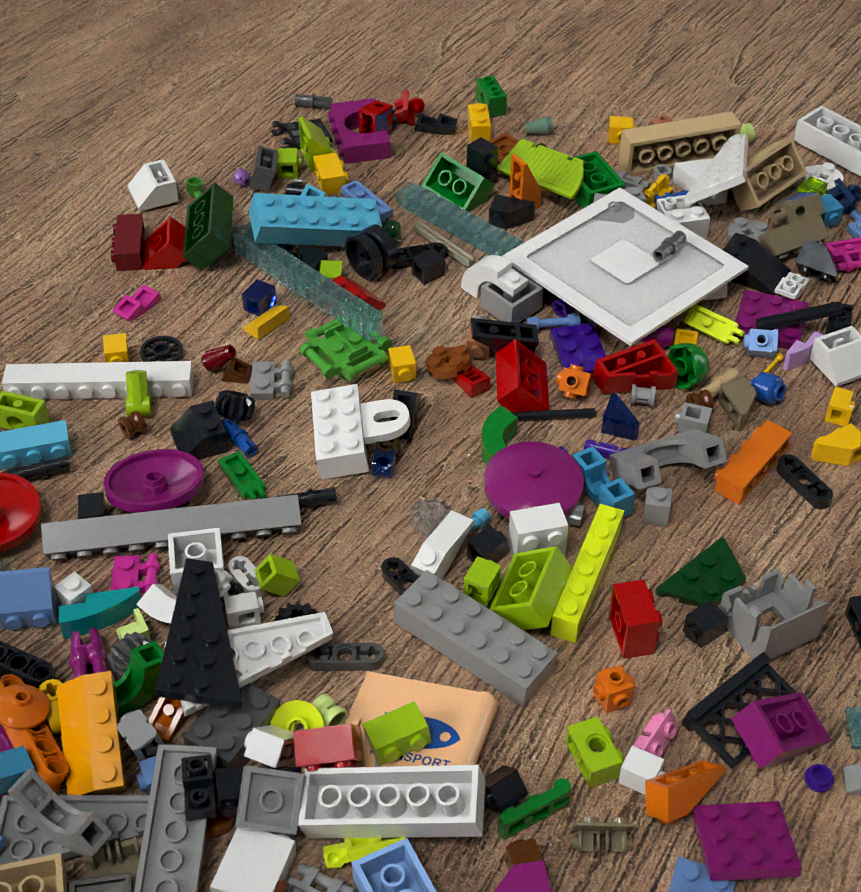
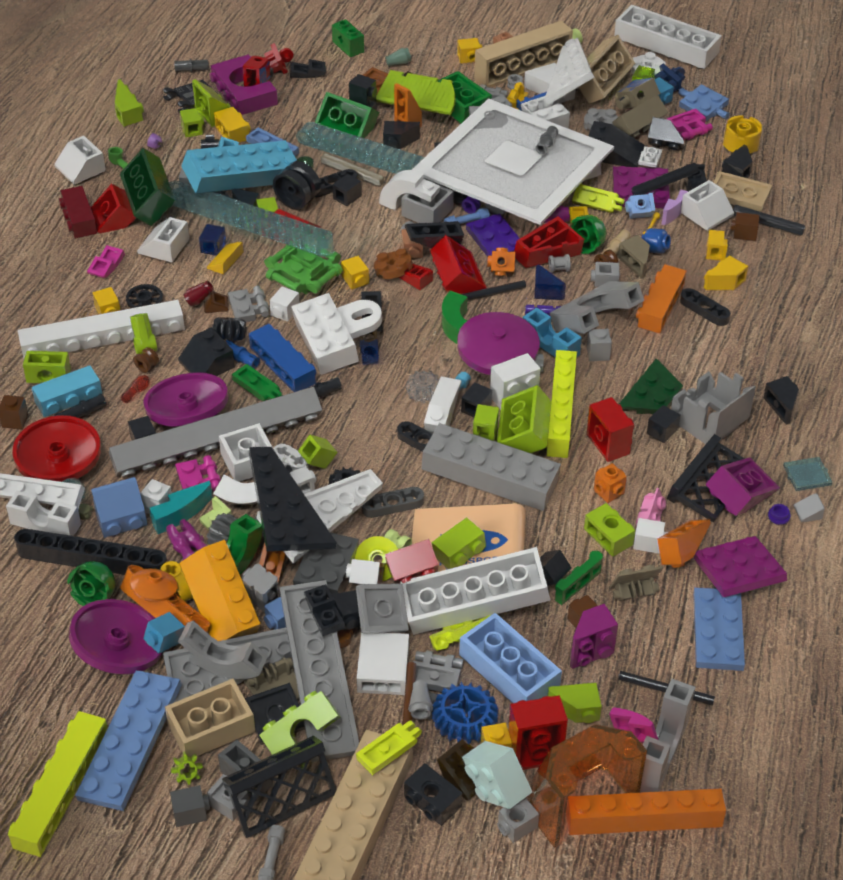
camera: 15 degrees left, 0 degrees up
(114, 452) = (138, 385): none -> clear red piece
(209, 290) = (166, 240): none -> white slope
(227, 134) = (126, 106): none -> lime slope
(263, 168) = (173, 130): dark grey brick -> none
(283, 452) = (282, 358): none -> blue brick
(307, 382) = (281, 303): none -> white brick
(479, 122) = (346, 63): yellow brick -> none

